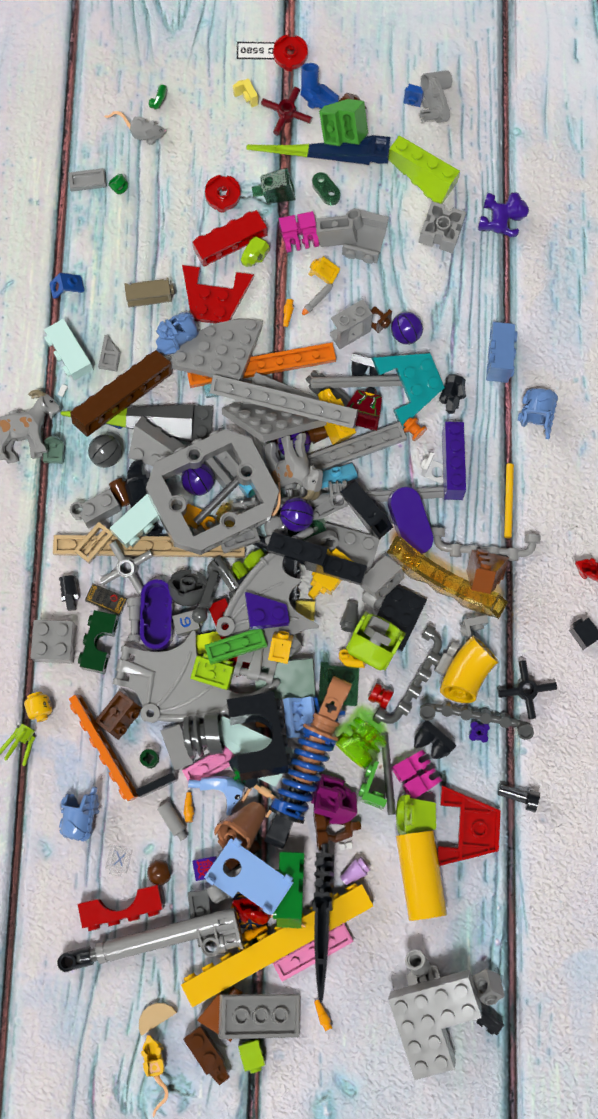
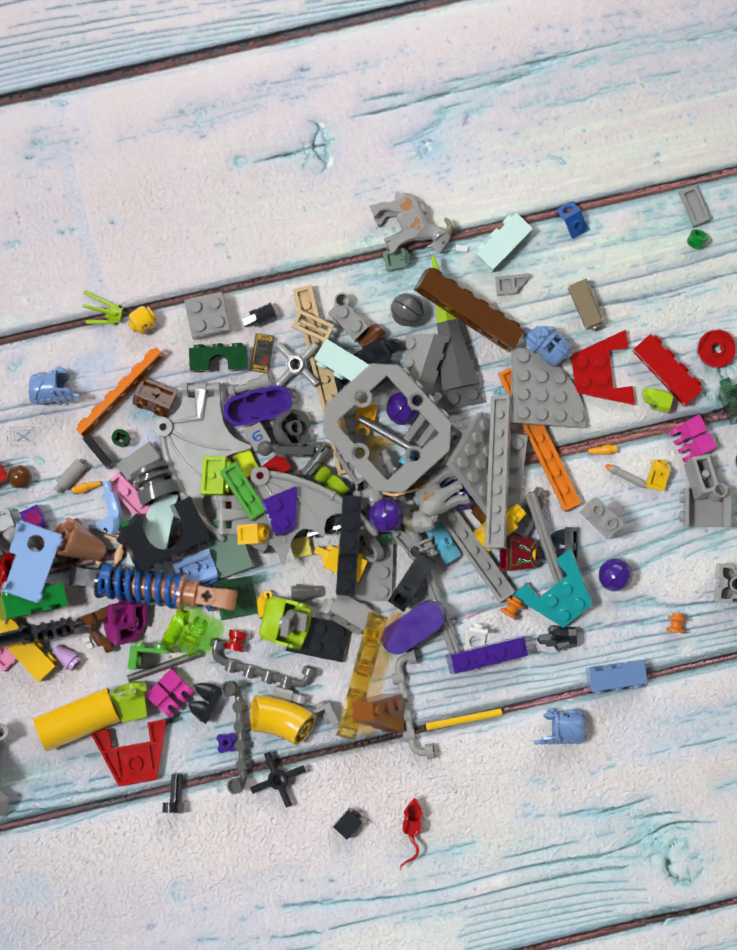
camera: 70 degrees right, 10 degrees up
(383, 322) = (619, 550): reddish brown bracket -> none
(465, 288) = (676, 623): none -> orange wheel

